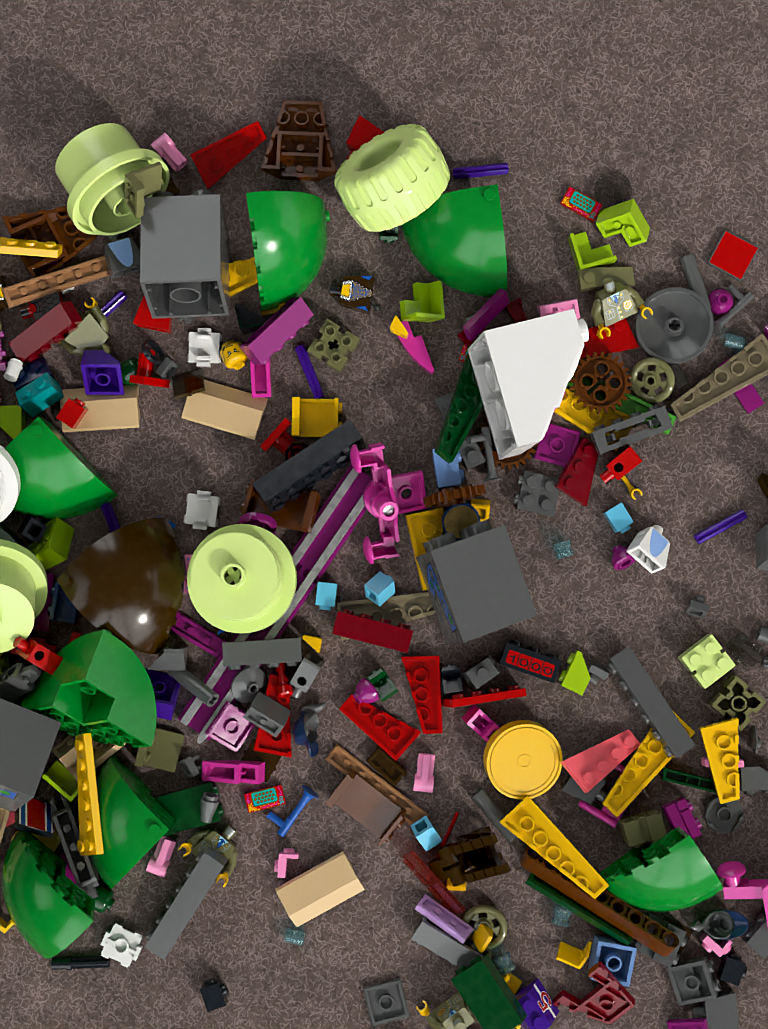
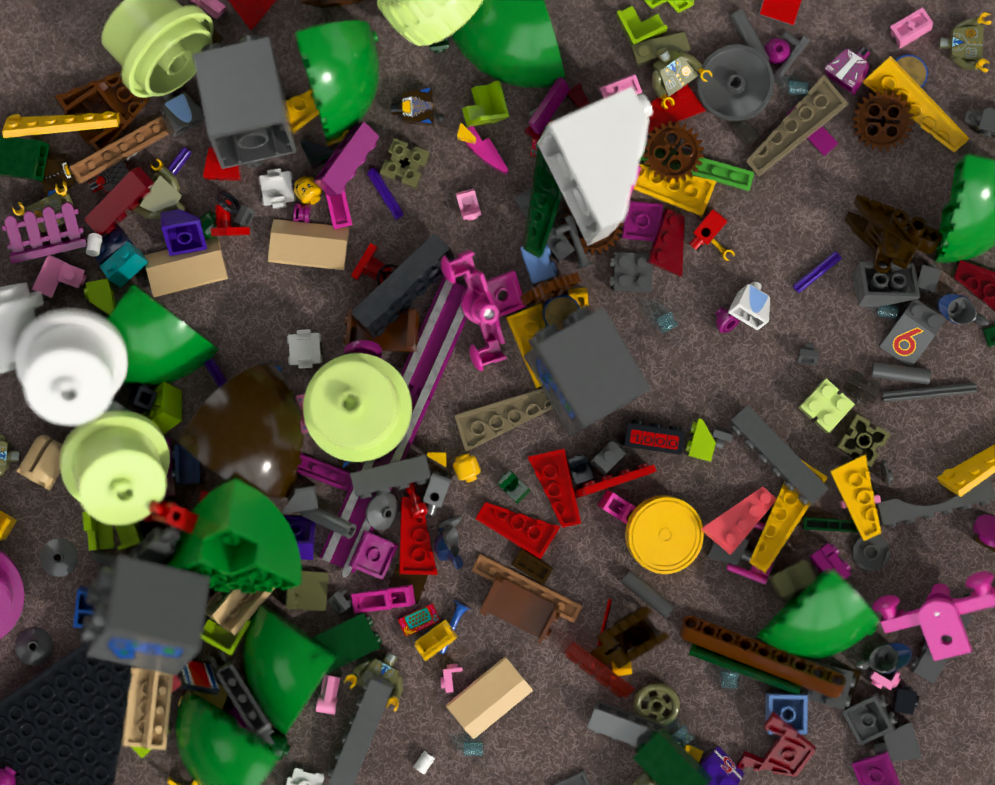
camera: 15 degrees left, 0 degrees up
(72, 412) = (160, 275): red brick -> none
(90, 832) = (253, 666): yellow wing -> none
(142, 184) = (190, 42): olive bracket -> none
(188, 383) = (268, 226): dark brown piece -> none
(208, 804) = (366, 635): dark grey cone -> none
(225, 377) = (304, 212): none -> magenta wheel
(243, 941) = (424, 762): none -> white piece
(267, 714) = (406, 536): dark grey panel -> none
(277, 823) = (435, 640): none -> yellow hinge
(315, 416) = (399, 236): yellow panel -> none
(326, 595) = (442, 410): medium azure brick -> none
(339, 656) = (466, 467): none -> yellow head
(365, 692) = (498, 497): magenta brick -> none
(373, 631) = (495, 436): dark red brick -> none
(379, 588) = (494, 393): medium azure brick -> none
(389, 397) = (468, 204): none -> bright pink bracket
(424, 777) = (571, 571): bright pink piece -> none
(426, 833) = (583, 623): medium azure brick -> none
(444, 918) = (615, 703): lavender tile -> none
(482, 937) = (656, 713): yellow slope -> none
(541, 835) = (698, 605): yellow wing -> none
(573, 955) = (747, 716): yellow bracket -> none
(618, 518) = (715, 282): medium azure brick -> none
(651, 396) = (739, 143): olive plate -> none
(660, 417) = (738, 177): dark grey brick -> none

